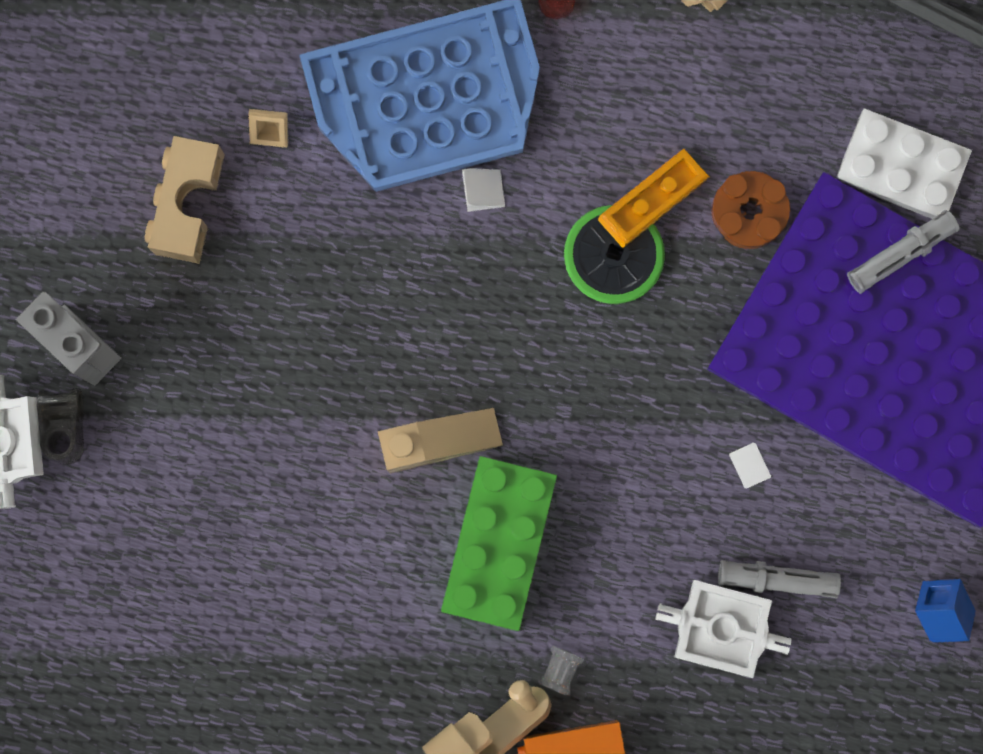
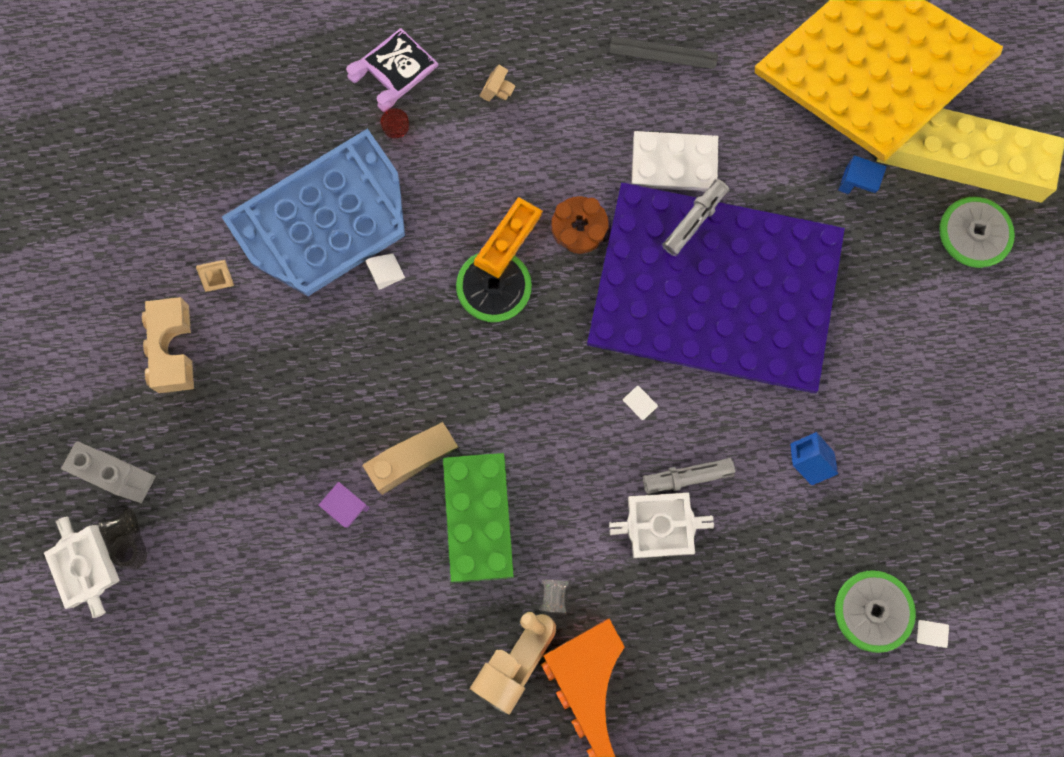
camera: 25 degrees left, 5 degrees down
(339, 472) = (343, 505): none -> medium lavender panel

